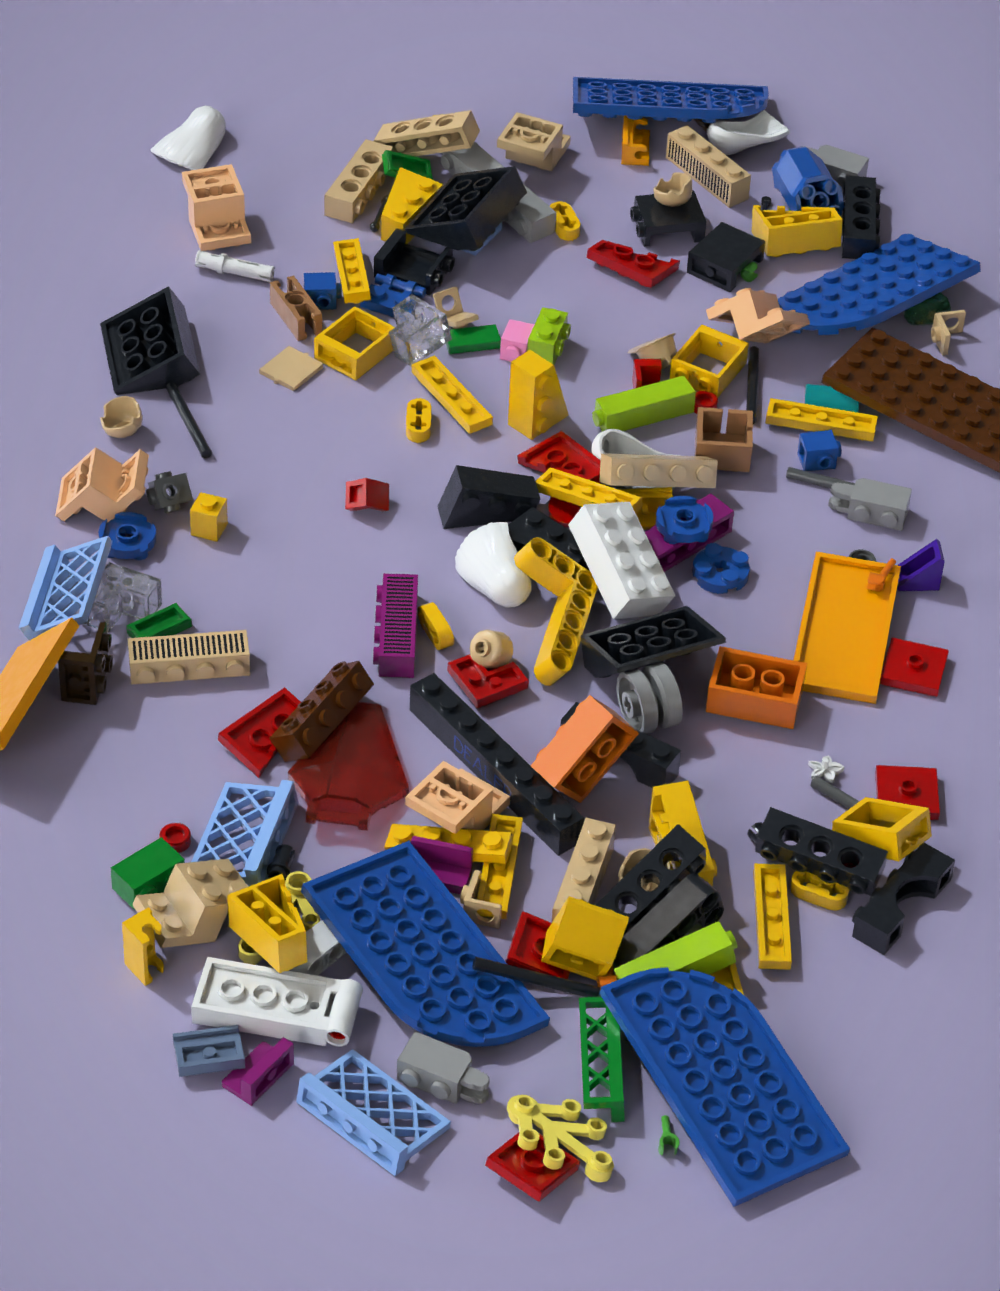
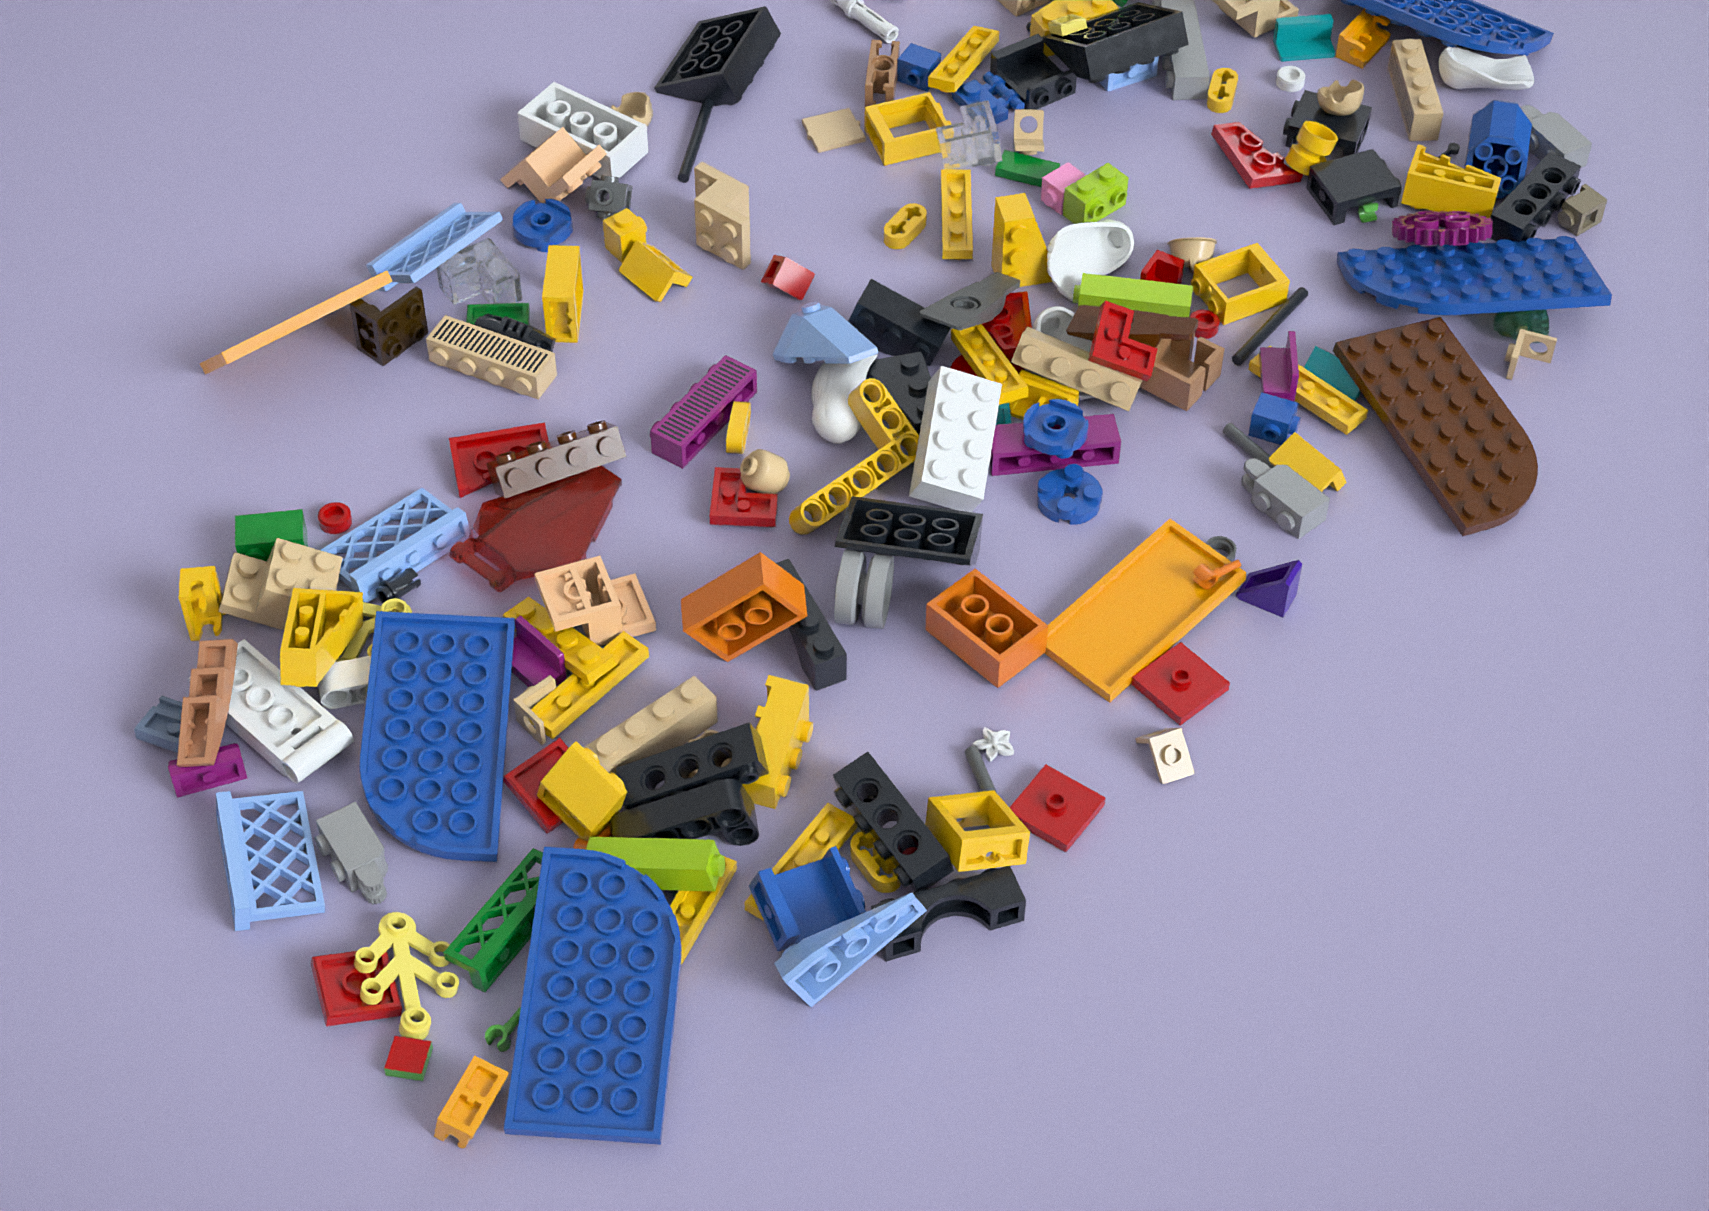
camera: 35 degrees right, 5 degrees up
(71, 438) = (588, 125): none -> white brick
(190, 626) = (516, 330): none -> black hinge
(208, 580) = (563, 293): none -> yellow window
(233, 1015) = (208, 703): none -> nougat slope
(253, 537) = (652, 270): none -> yellow panel
(284, 475) = (722, 215): none -> tan bracket
(421, 211) = (1067, 25): none -> light yellow tile
(451, 526) = (824, 335): none -> light blue wedge
(496, 763) = (670, 578): black brick -> none
(535, 977) = (512, 805): black bar -> none
(536, 453) = (973, 303): none -> dark grey piece
(584, 382) = (1087, 249): none -> white hair
(590, 157) = (1304, 37): none -> teal panel
(605, 193) = (1290, 78): none -> white tile
(616, 1193) = (408, 1058): none -> red tile
(675, 423) = (1145, 326): none -> reddish brown piece
(677, 234) = (1313, 146): none -> yellow wheel
(683, 441) = (1114, 348): none -> red plate
(695, 1196) = (470, 1101): none -> light orange hinge
(757, 316) = (1318, 256): light nougat bracket -> none
(799, 409) = (1280, 369): none -> magenta panel
(806, 934) = (806, 898): none -> blue panel
(820, 261) = (1459, 228): none -> magenta gear
(857, 964) = (833, 954): none -> light blue wedge
(862, 466) = (1308, 463): none -> yellow panel
(897, 211) = (1582, 210): none -> dark tan brick
(952, 715) = (1169, 754): none -> bracket

